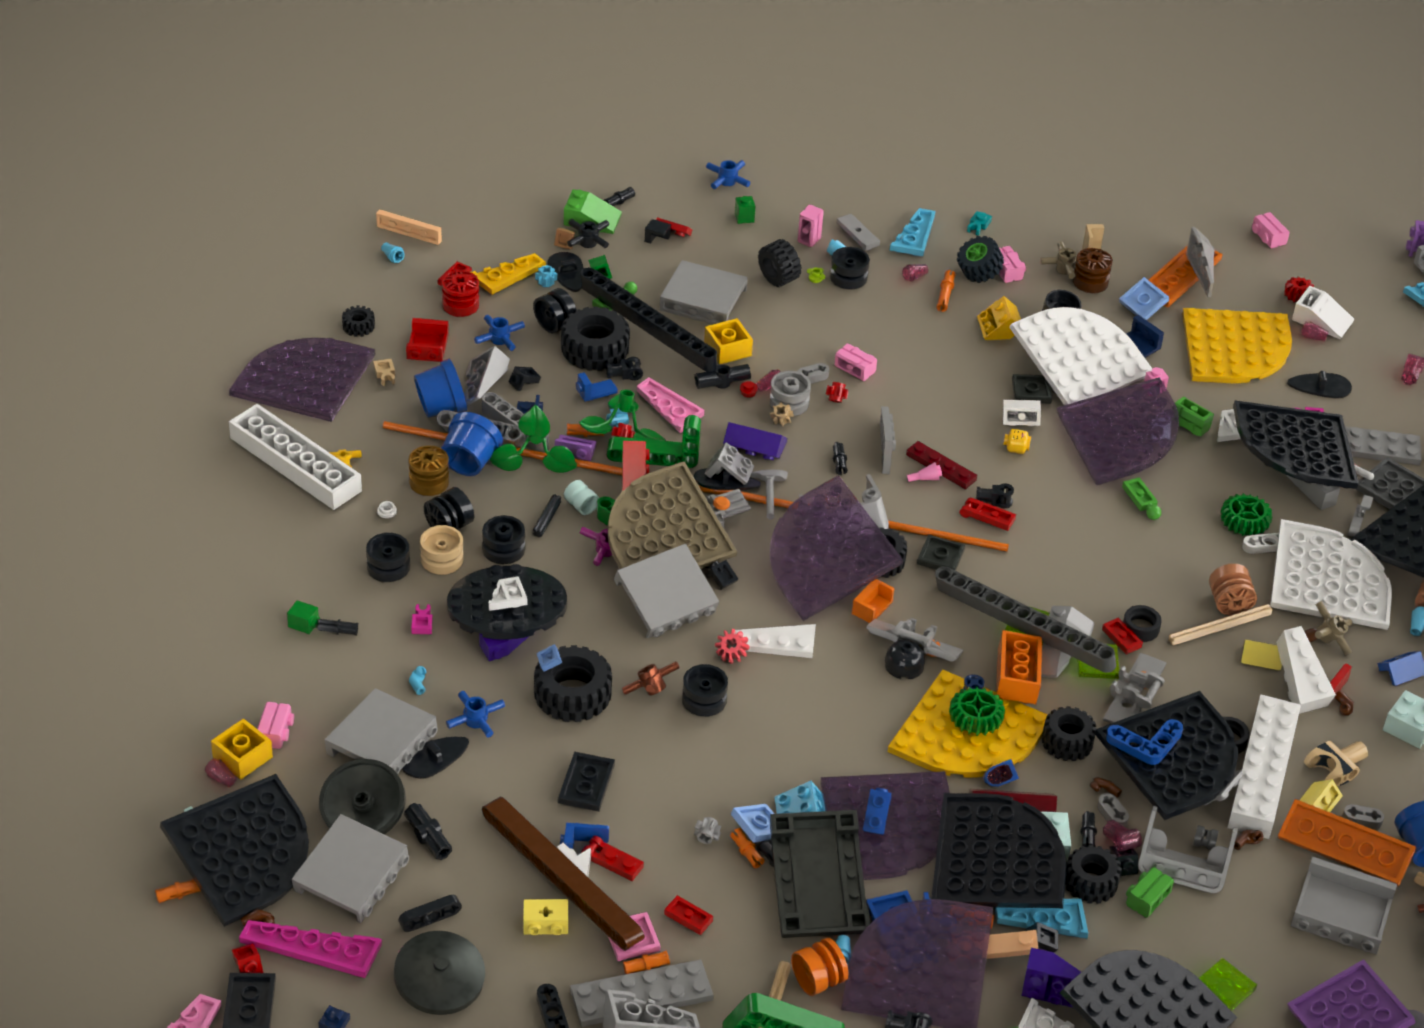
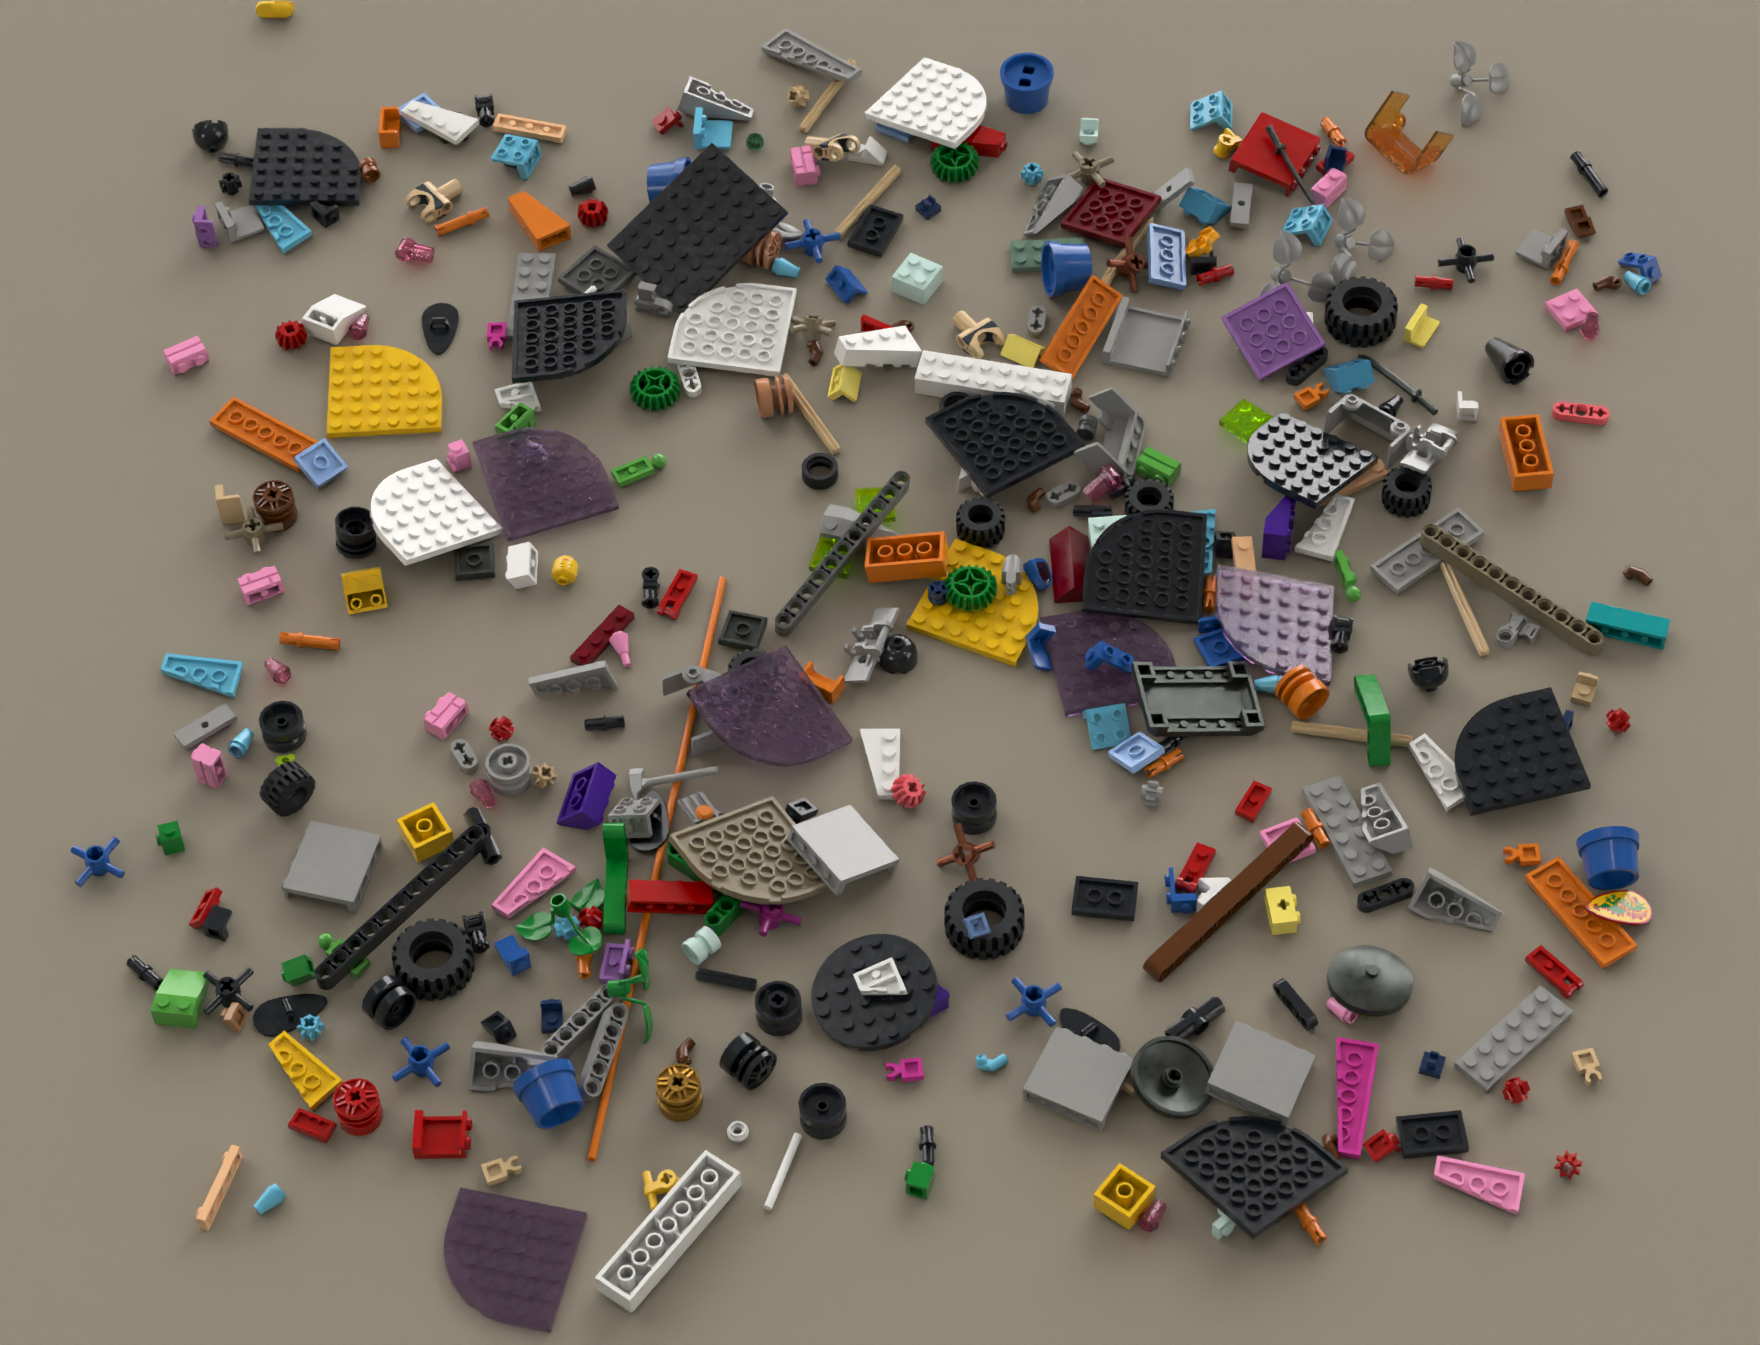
camera: 90 degrees left, 10 degrees up
(275, 723) = (1080, 1177): bright pink brick -> none
(336, 534) = (782, 1171): none -> white bar
(358, 321) = (402, 1204): black tyre -> none
(441, 549) = (804, 1061): tan wheel -> none
(471, 442) = (642, 1051): blue piece -> none
(477, 483) = (682, 1052): none -> reddish brown arm
(748, 389) = (496, 813): red plate -> none
(902, 763) = (1036, 643): none -> blue bracket
(979, 221) = (176, 615): teal plate -> none
(980, 259) = (266, 603): black wheel -> none
(993, 744) = (1011, 573): none -> light grey arm
(1117, 734) = (1006, 451): blue beam -> none
(1122, 636) = (838, 486): red plate -> none
(1129, 687) = (885, 466): light grey piece -> none
(1145, 336) = (383, 463): dark blue bracket -> none
(1201, 258) = (259, 408): light grey wedge -> none

